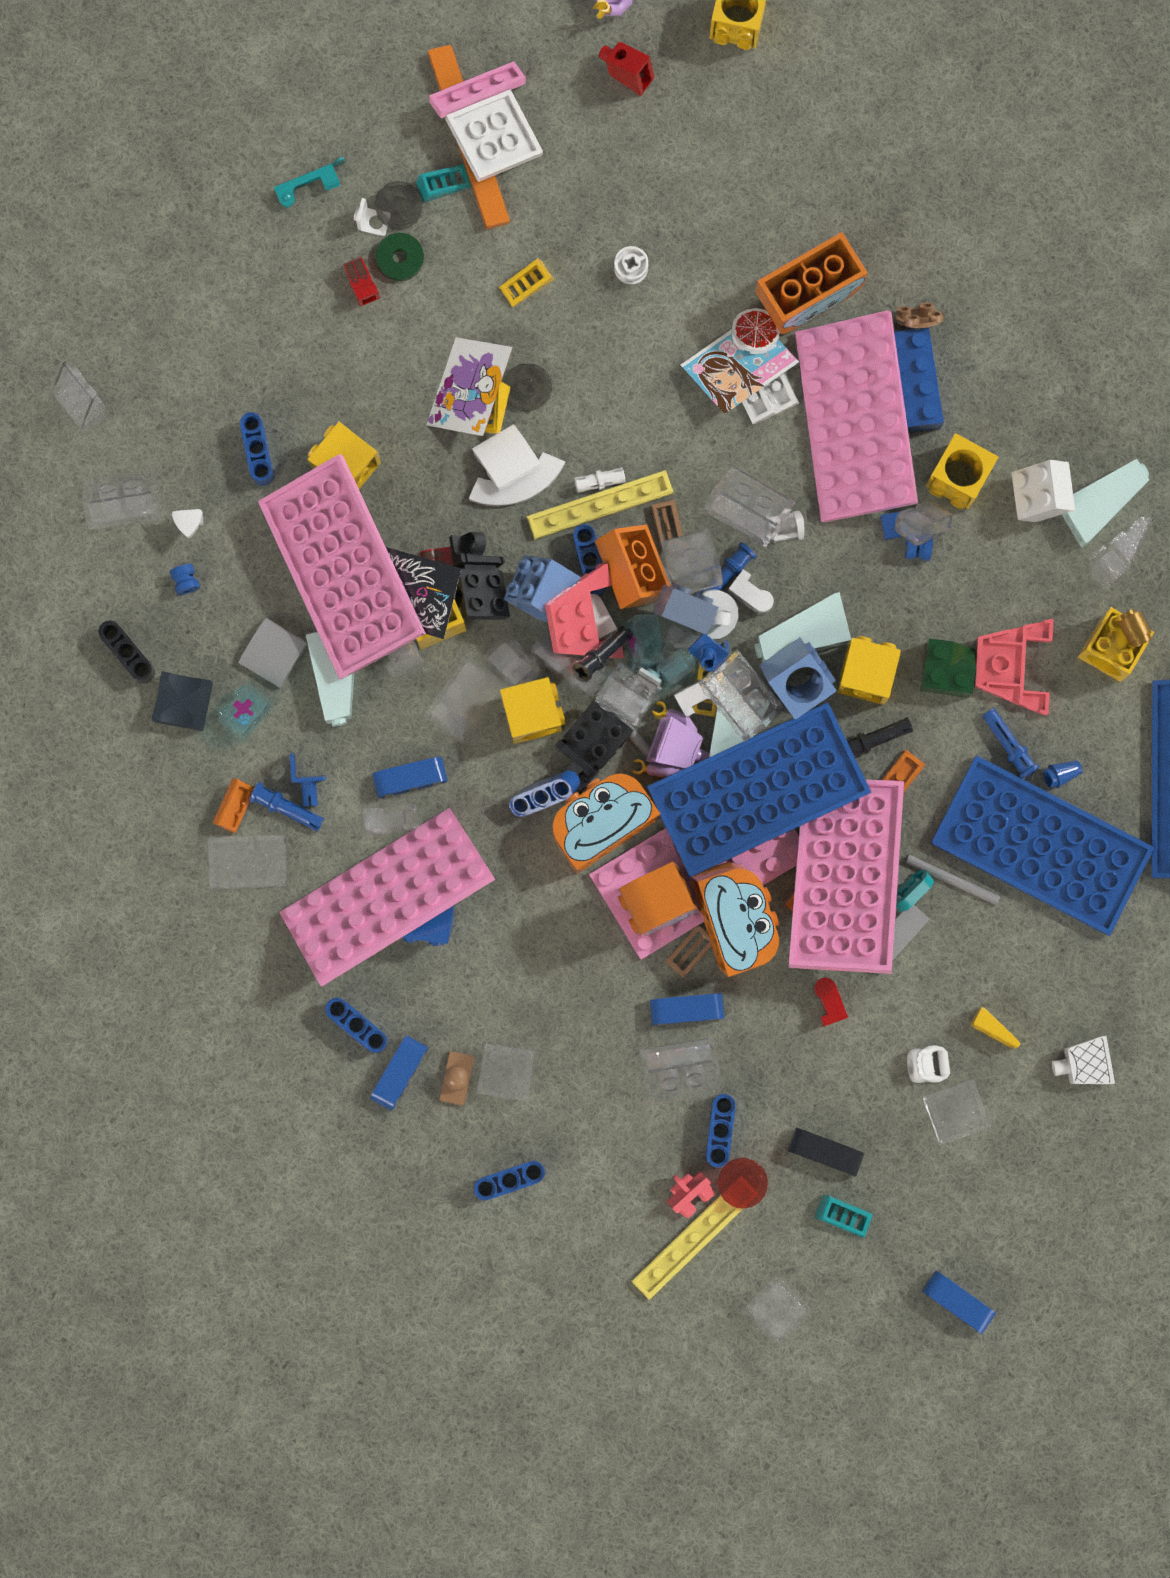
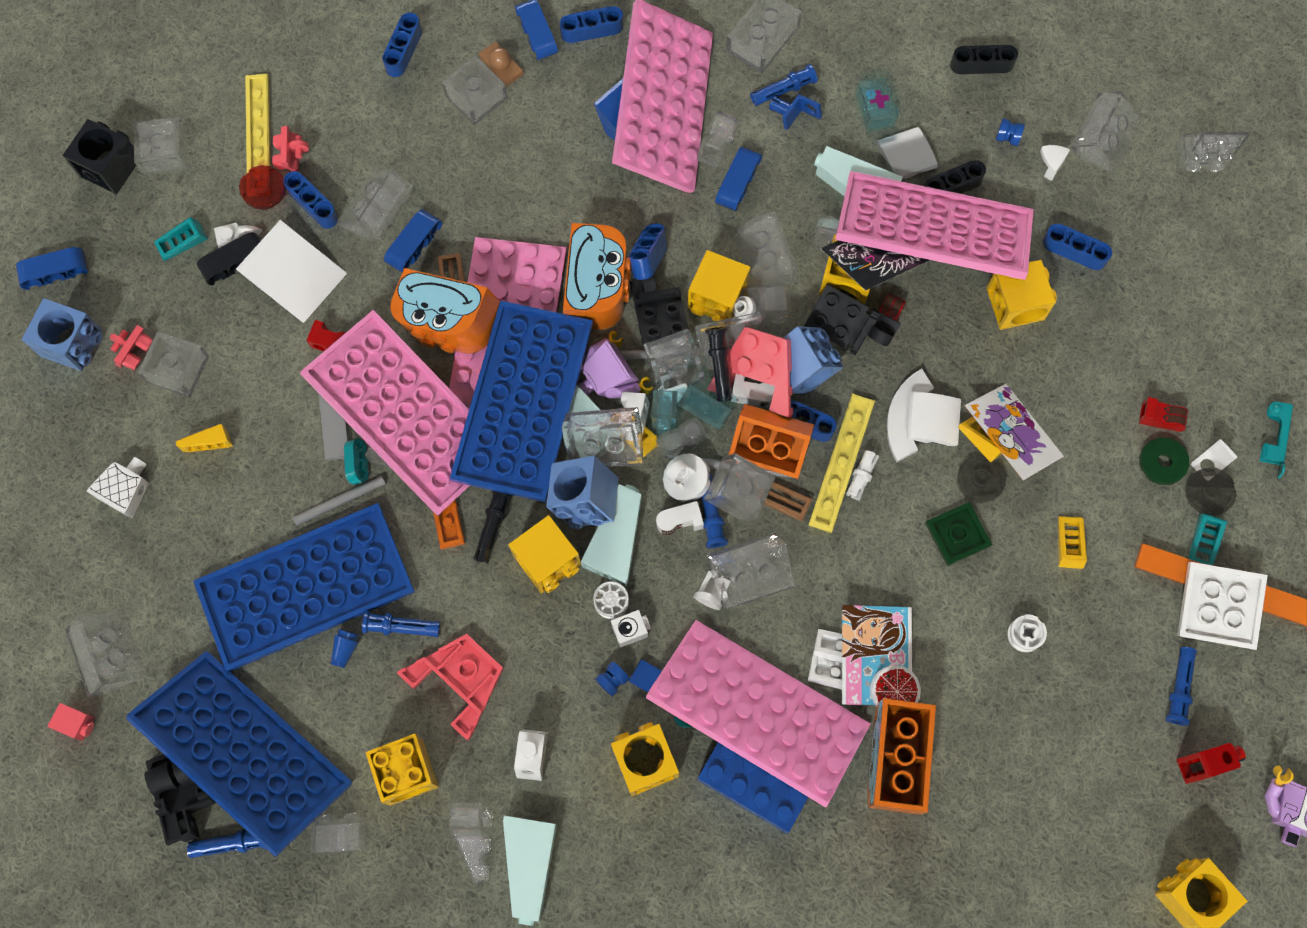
camera: 130 degrees right, 10 degrees down
(182, 701) = (917, 70): black brick -> none
(233, 805) = (813, 52): orange plate -> none
(266, 583) = (959, 175): none -> black beam
(477, 89) = (1274, 621): bright pink plate -> none
(532, 668) = (747, 303): none -> white plate
(588, 372) = (958, 533): none -> dark green tile
(591, 120) = (1181, 697): none -> blue pin
(657, 900) = (499, 255): orange brick -> none
(691, 611) = (703, 442): sand blue brick -> none
(709, 651) = (655, 441): blue bracket -> none
(796, 1089) = (291, 271): none -> white sticker
(801, 1171) = (230, 232): none -> white plate
(848, 1361) = (93, 141): none -> black brick
(859, 596) = (611, 600): none -> white wheel
(869, 563) = (630, 628): none -> white brick
(919, 317) = (805, 835): medium nougat dish -> none
(921, 1064) = (229, 371): white piece -> none
(923, 522) = (628, 694): clear brick -> none
(948, 668) = (497, 623): dark green slope -> none
(970, 1171) = (125, 357): none -> coral hips
(1023, 562) = (530, 754): none -> white torso
(1030, 1235) = (50, 322): none -> medium blue brick
(1043, 491) = (574, 814): white brick -> none
(1135, 628) = (394, 781): pearl gold brick -> none

